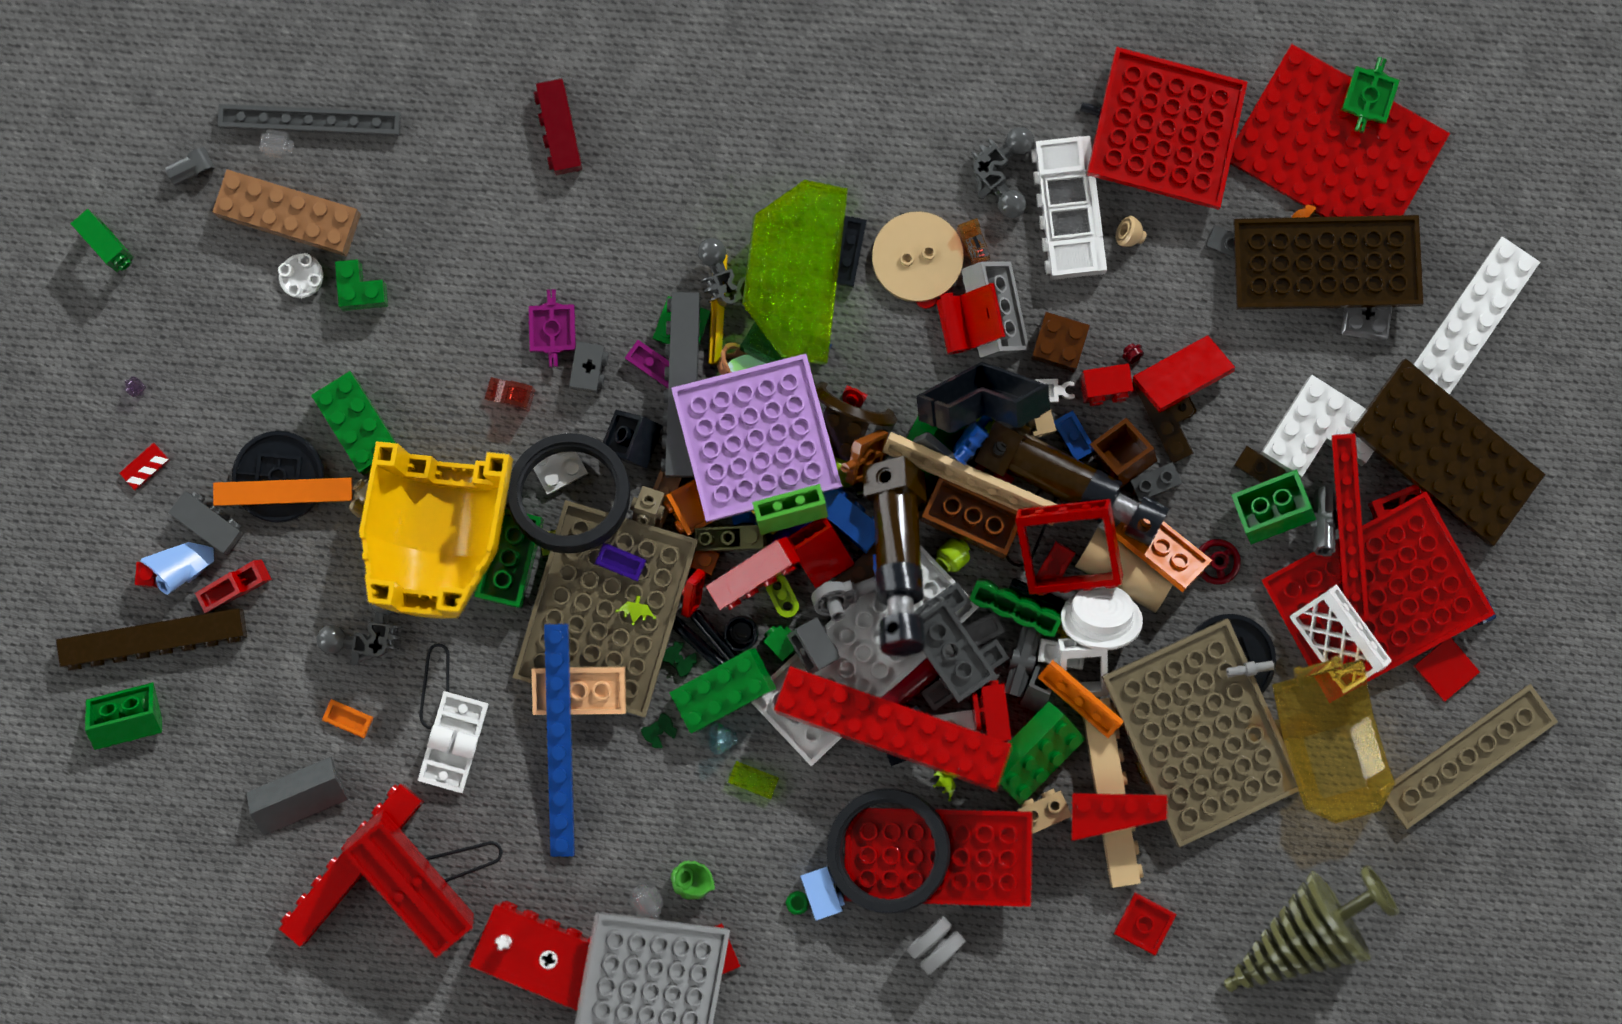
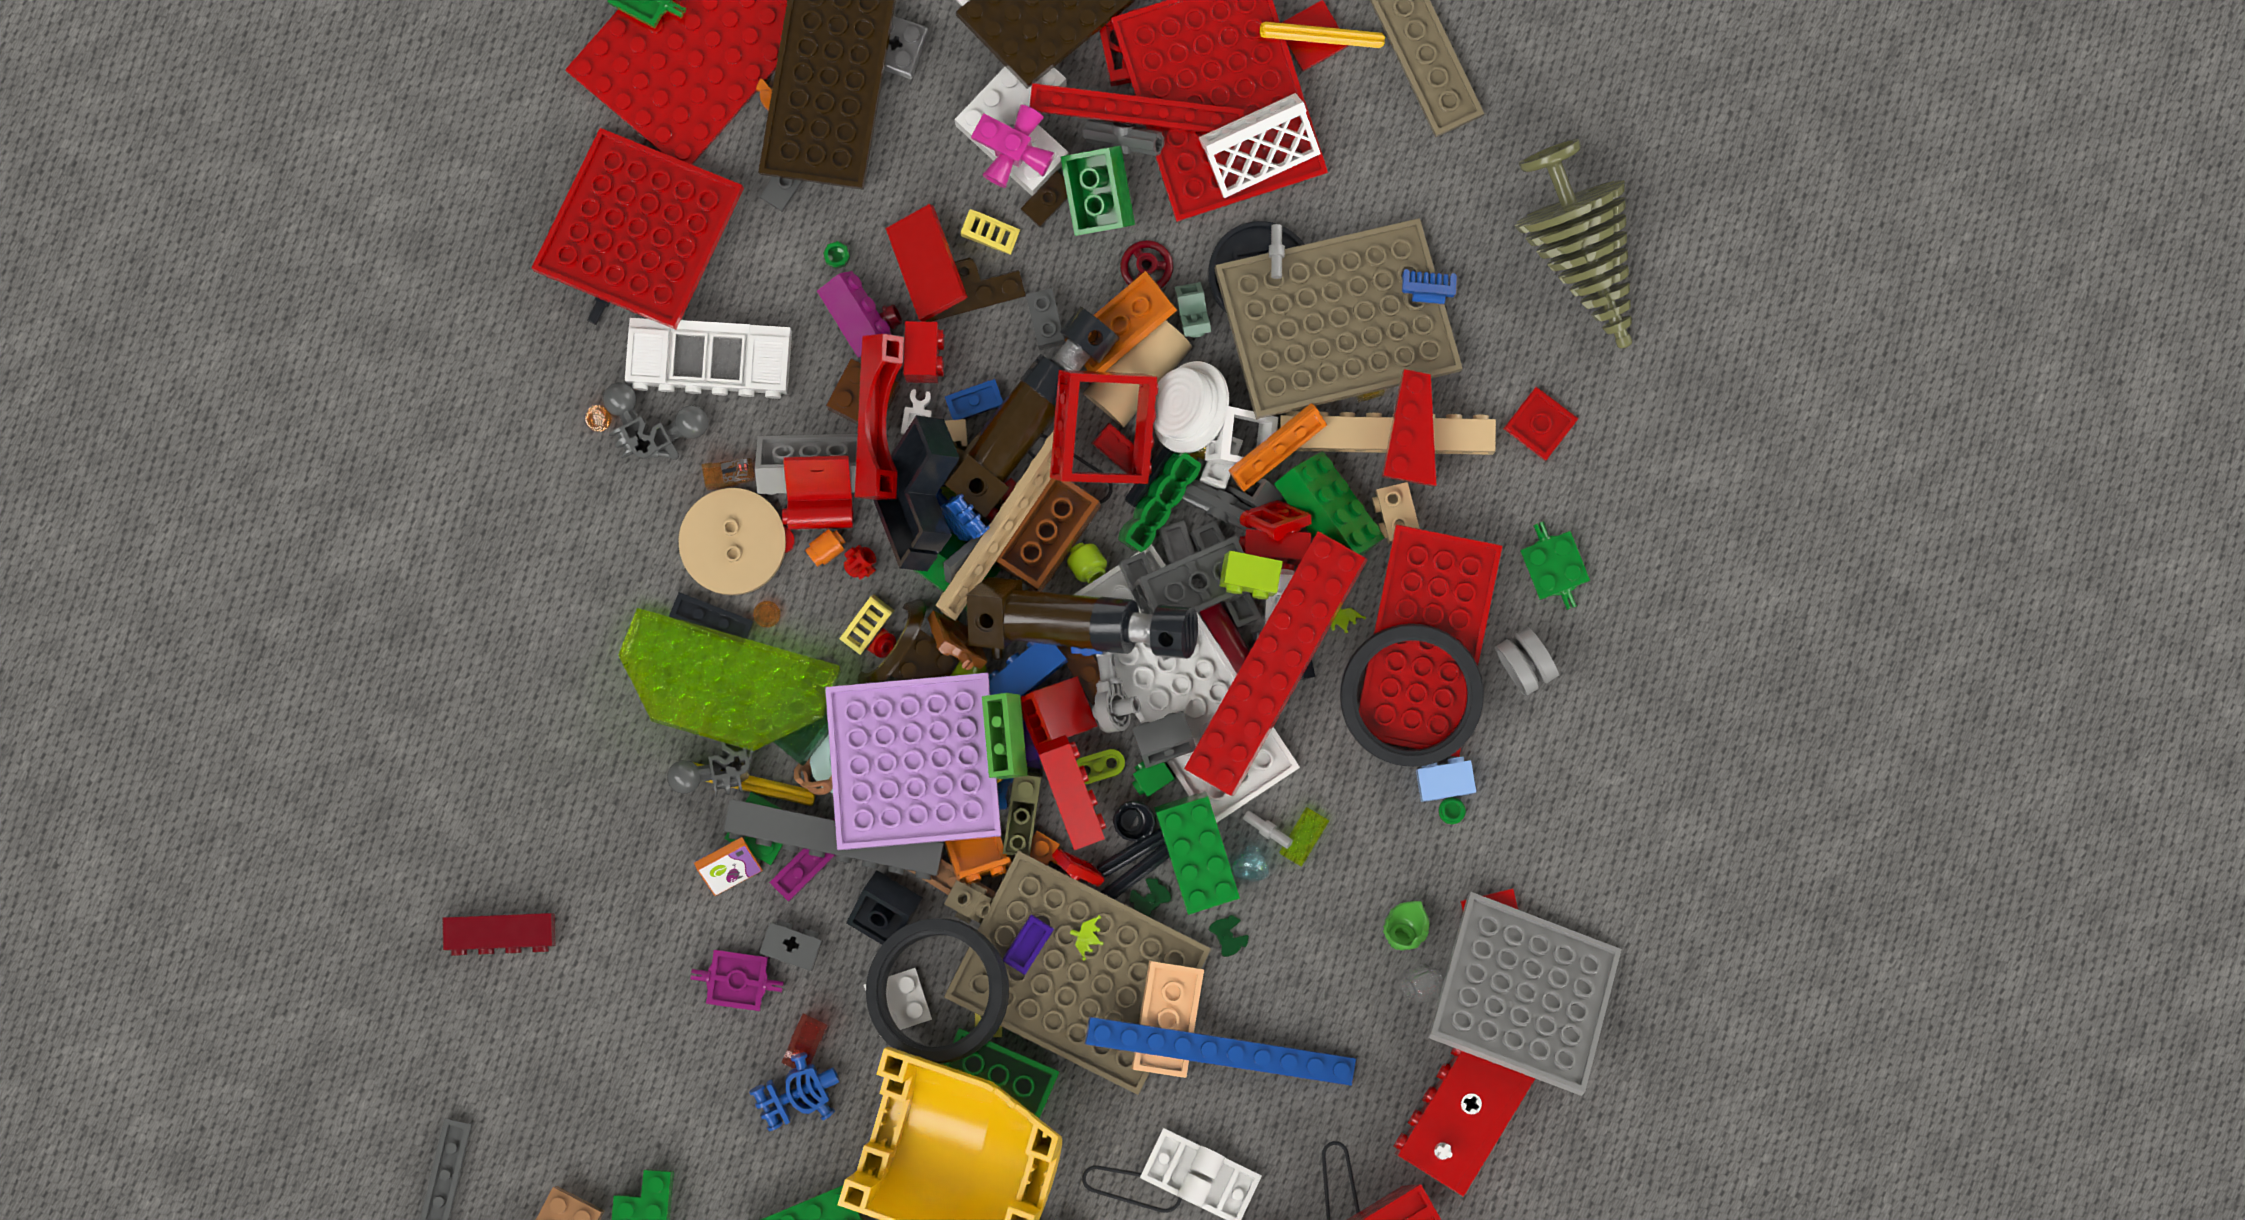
camera: 85 degrees left, 0 degrees up
(469, 407) = (820, 1081): none -> blue piece
(644, 302) = (728, 866): none -> tile
(754, 748) = (1268, 829): none -> light grey bar
(861, 296) = (766, 614): none -> clear orange plate
(885, 390) = (880, 605): none -> light yellow slope
(919, 365) = (860, 562): none -> red gear
(926, 334) = (825, 547): none -> orange brick
(964, 693) = (1250, 574): none -> lime brick
(1000, 126) = (598, 418): none -> clear orange plate
(1023, 708) = (1280, 519): none -> red plate
(1024, 956) = (1555, 565): none -> green plate
(1086, 348) = (874, 466): none -> red arch
(1123, 452) = (1004, 347): reddish brown piece -> none
(1128, 322) = (852, 309): none -> magenta brick
(1130, 232) = (750, 293): tan brick -> none
(1176, 298) = (836, 255): none -> green tile
(1186, 606) = (1192, 310): none -> sand green brick
(1229, 425) = (968, 224): none -> light yellow slope
(1240, 807) = (1428, 292): none -> blue piece
(1298, 426) = (1012, 145): none -> dark pink brick
(1333, 740) = (1373, 174): clear yellow windscreen -> none
(1448, 676) = (1322, 35): none -> yellow axle

